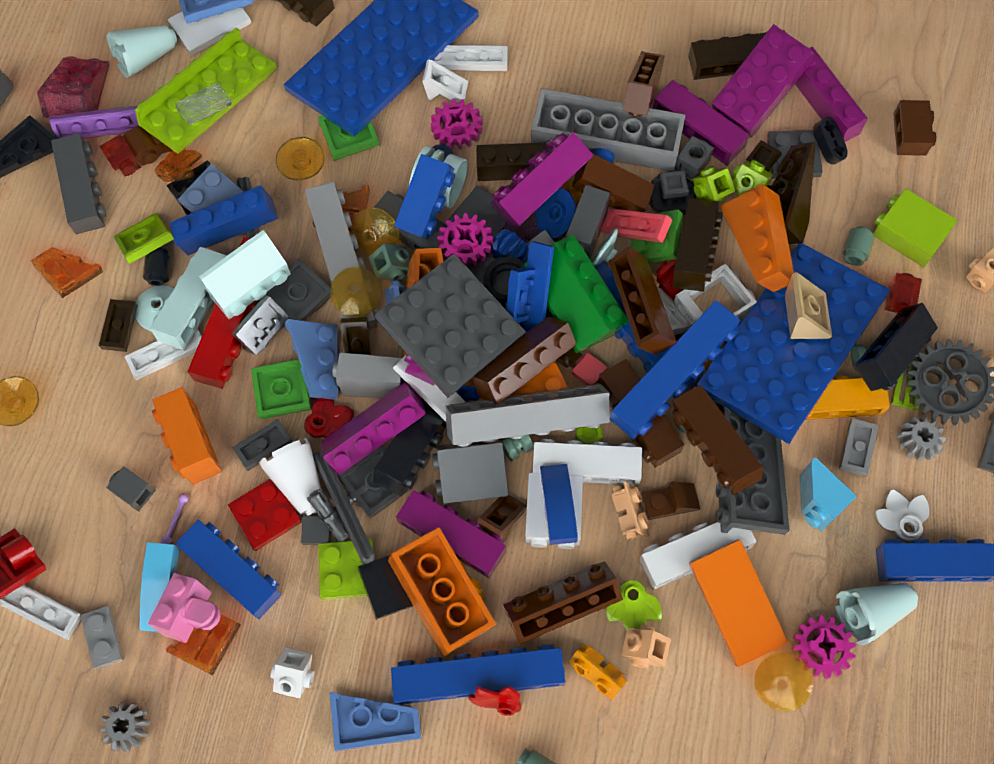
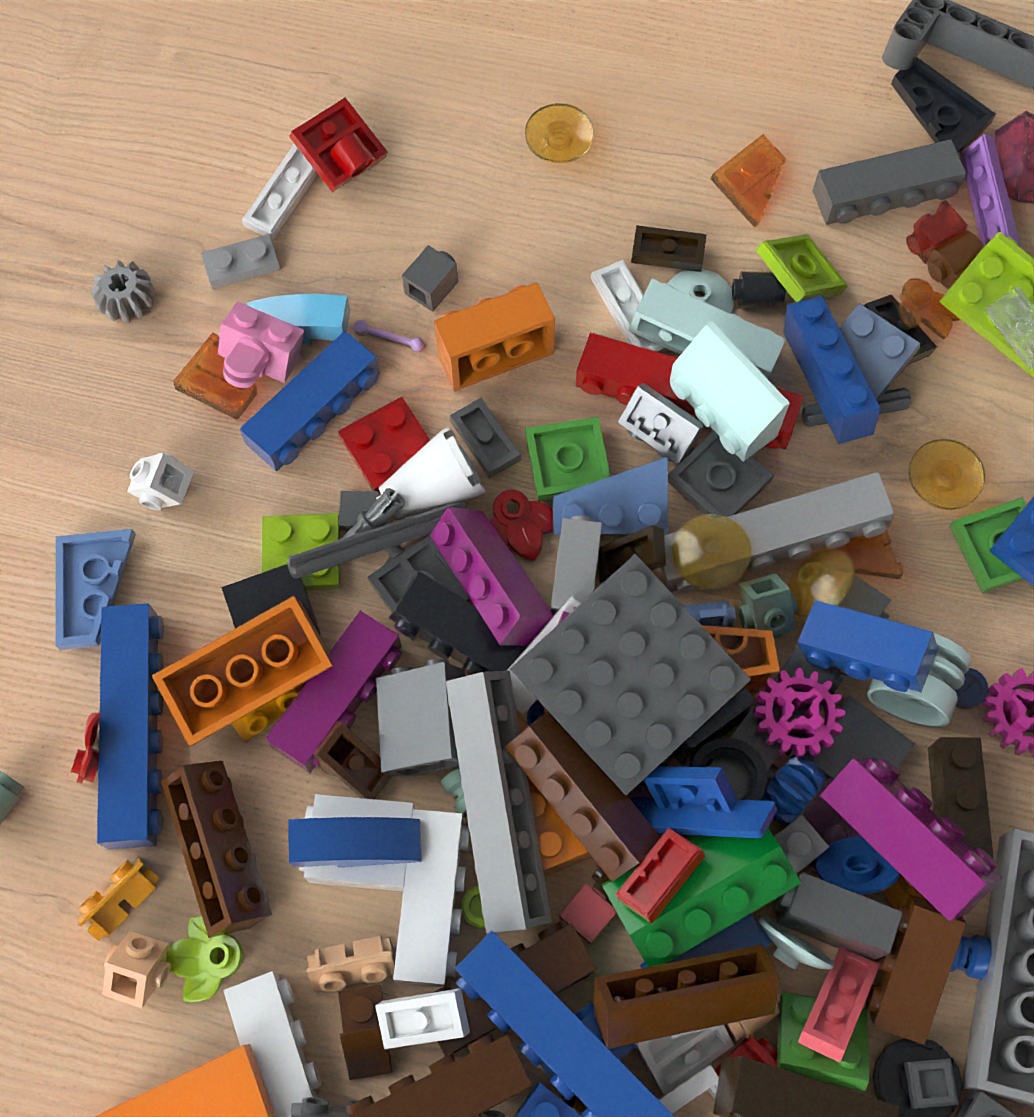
camera: 90 degrees right, 0 degrees up
(574, 311) = (660, 875): none -> red plate
(665, 455) = (422, 1018): none -> white plate

